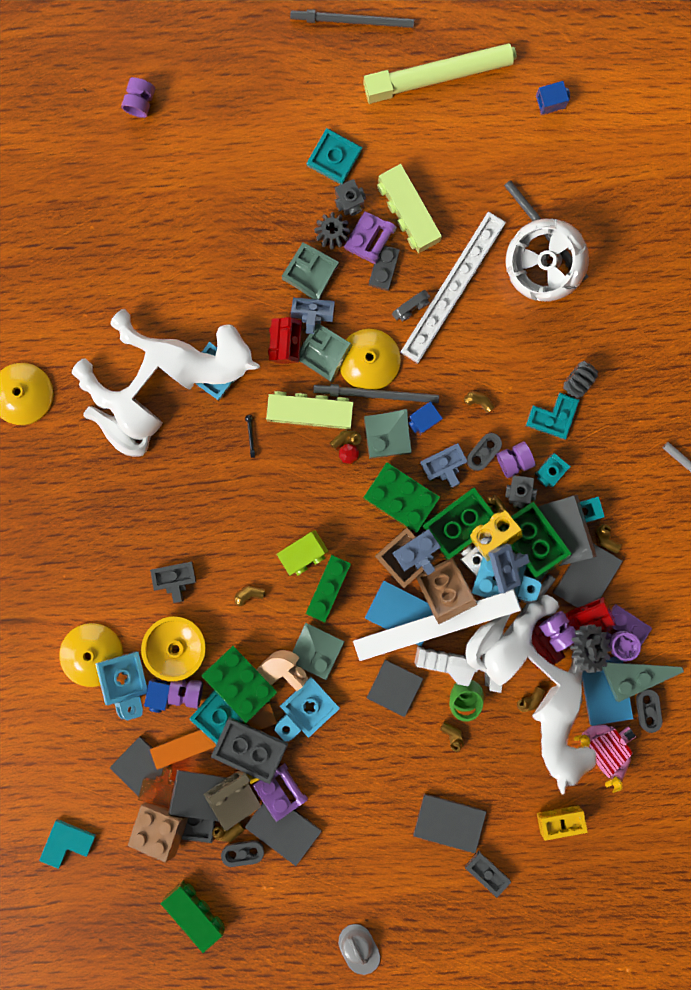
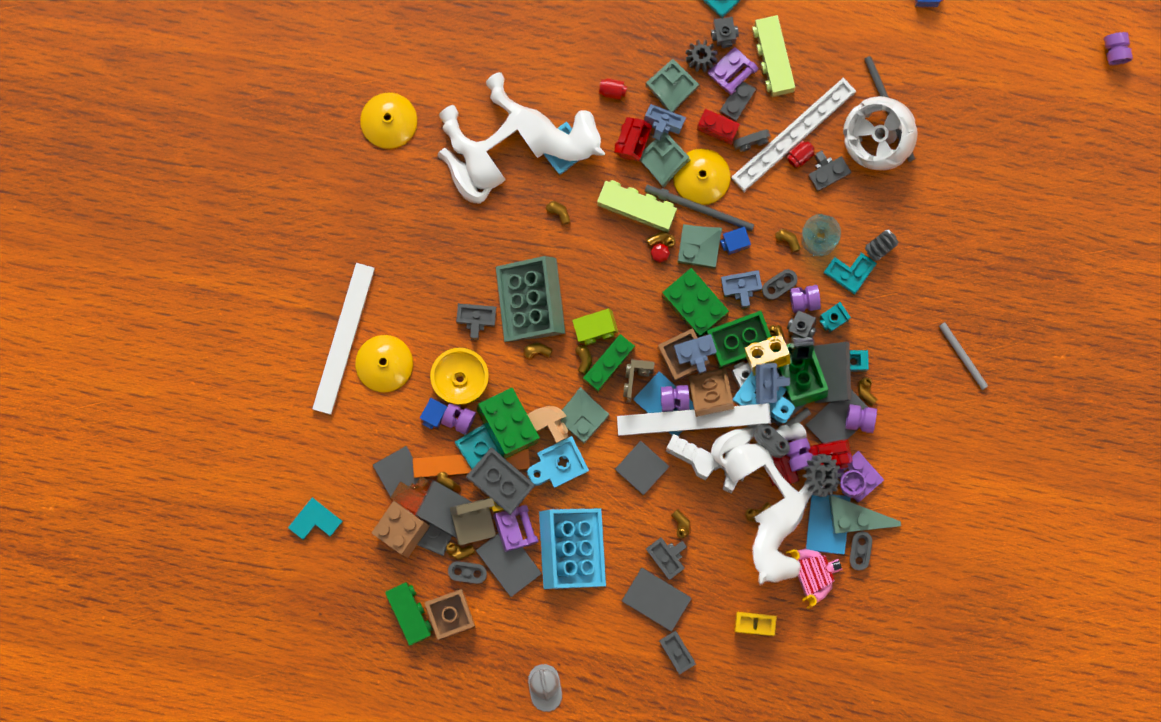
camera: 15 degrees right, 5 degrees down
(40, 641) = (343, 338): none -> white tile
(125, 694) = (406, 405): medium azure plate -> none
(198, 767) = (447, 482): none -> pearl gold arm
(226, 543) = (530, 299): none -> sand green slope
(230, 438) = (555, 207): none -> pearl gold arm
(236, 906) = (450, 614): none -> medium nougat brick
(248, 292) = (612, 88): none -> red brick
(249, 418) = (581, 198): black hinge -> none
(302, 588) = (586, 358): none -> pearl gold arm
(346, 797) = (572, 548): none -> medium azure slope
(365, 585) = (643, 369): none -> dark tan bracket
(371, 301) = (718, 126): none -> red brick
(409, 607) = (674, 398): none -> medium lavender wheel
(448, 775) = (667, 556): none -> dark grey hinge
(466, 699) = (702, 492): bright green helmet -> none
(467, 306) = (801, 154): none -> red brick
(500, 316) = (828, 171): none -> dark grey hinge
(505, 378) = (823, 224): none -> clear light blue brick
(528, 629) = (771, 441): none -> dark grey plate
(532, 519) = (801, 348): none -> black slope
(612, 572) = (861, 418): none -> medium lavender wheel

